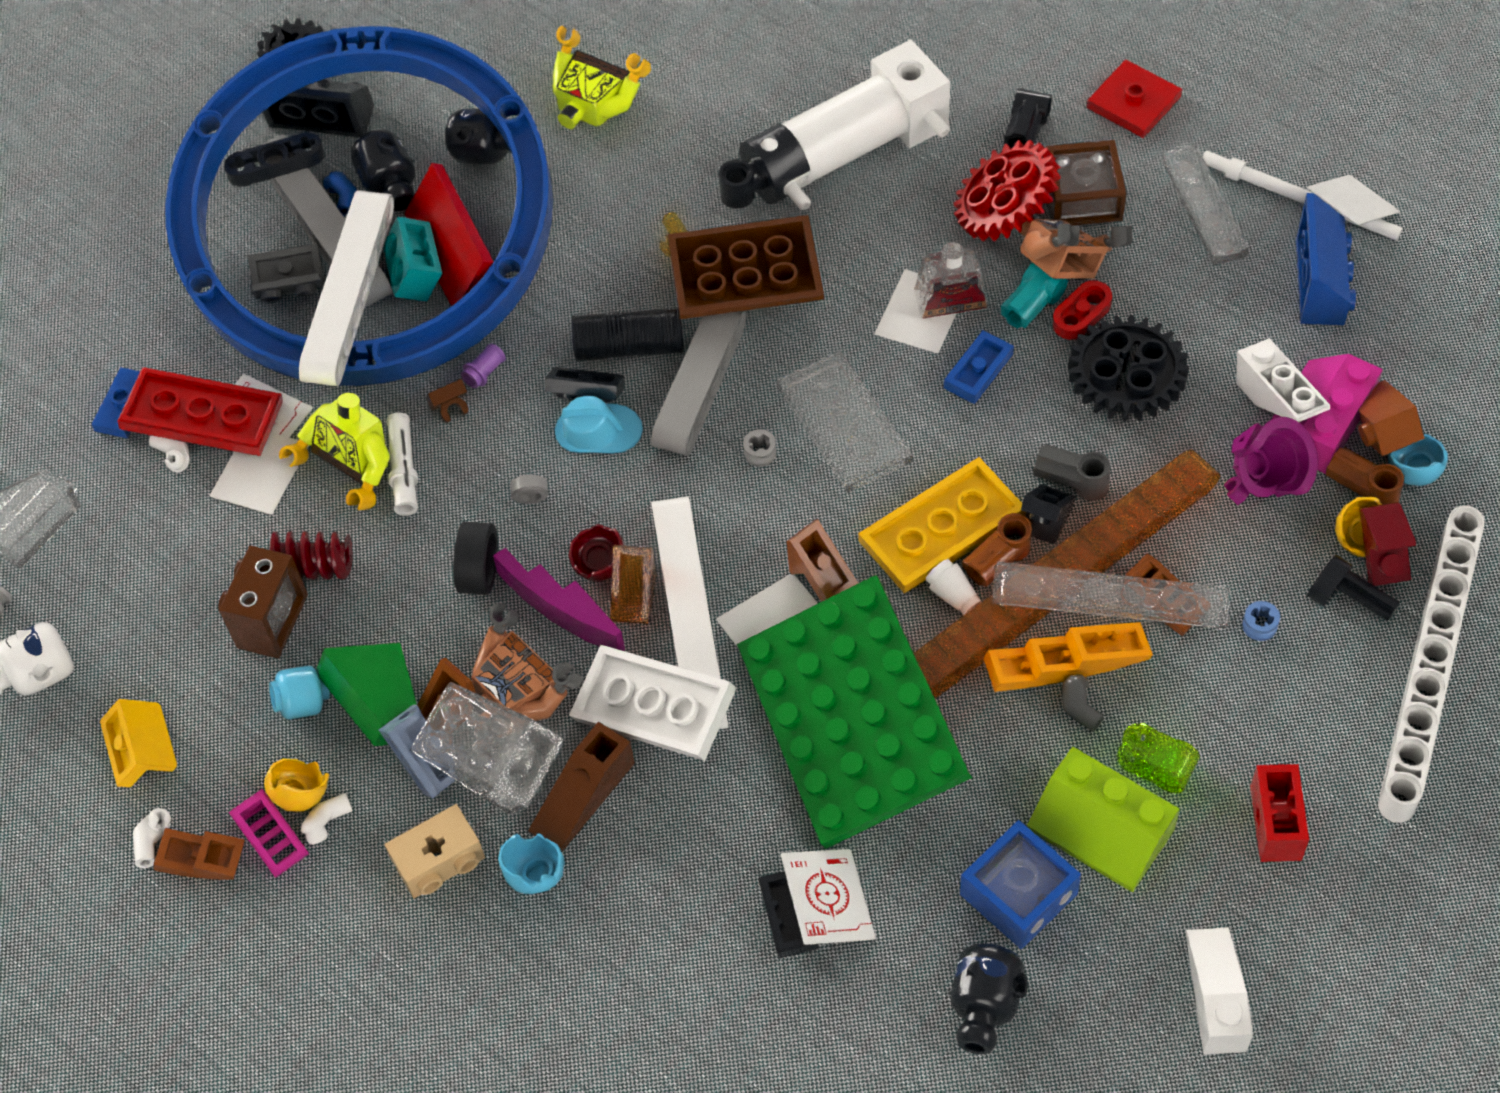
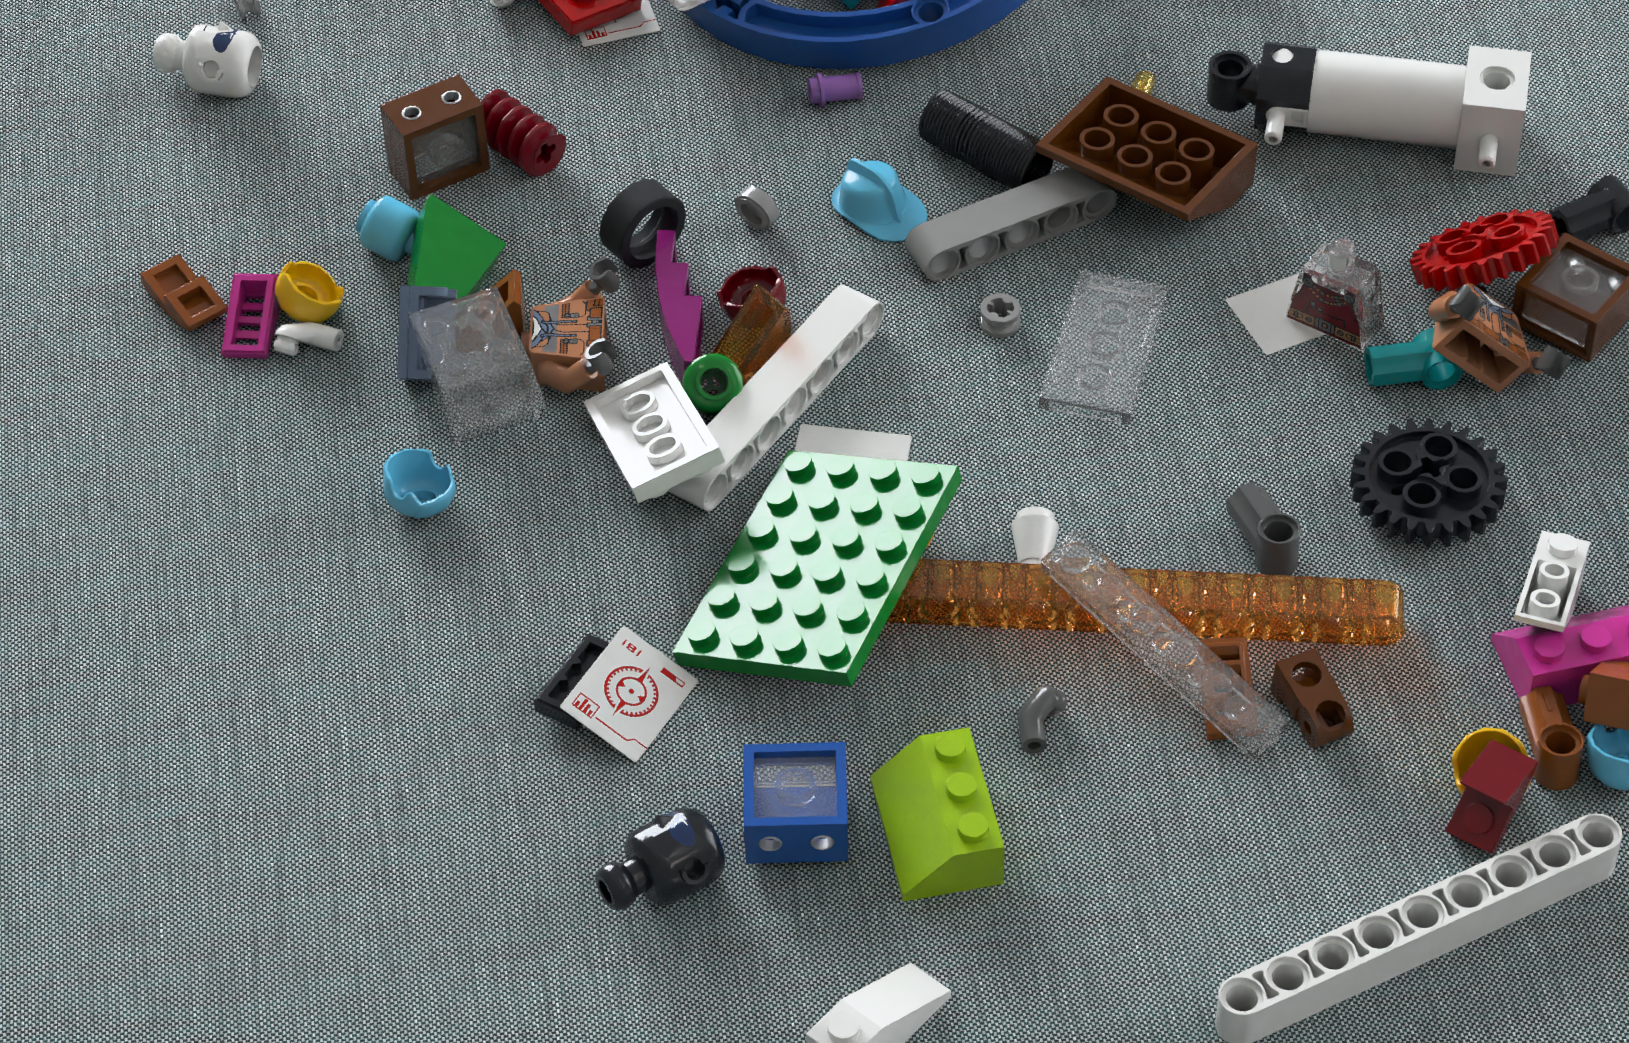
camera: 40 degrees right, 10 degrees down
(137, 740) = (234, 178): yellow panel -> none
(148, 834) = (161, 250): white arm -> none
(257, 480) = (553, 54): white sticker -> none
(347, 440) = (645, 65): neon yellow torso -> none
(402, 475) = (666, 127): white pin -> none
(443, 833) = (356, 420): tan brick -> none
(447, 396) = (775, 89): reddish brown tile -> none
(574, 382) = (911, 165): black plate -> none
(583, 785) = (532, 456): reddish brown slope -> none
(647, 635) = (712, 367): none -> green head
(817, 558) = (932, 424): dark orange slope -> none
(939, 524) = (1090, 485): yellow plate -> none
(978, 367) = (1283, 385): blue plate -> none
(999, 548) = (1129, 542): dark orange piece -> none
(1047, 511) = (1198, 540): black slope -> none
(1078, 310) = (1460, 403): red plate -> none
(1081, 651) = (1088, 678): light orange slope -> none
(1160, 759) = (1050, 805): clear neon green piece -> none
(1221, 562) = (1312, 698): none -> reddish brown leg
(1264, 609) = (1293, 792): medium blue bush -> none
(1273, 460) = (1463, 643): magenta helmet -> none
(1279, 813) = (1100, 927): red brick -> none
(1338, 576) = (1413, 794): black piece -> none

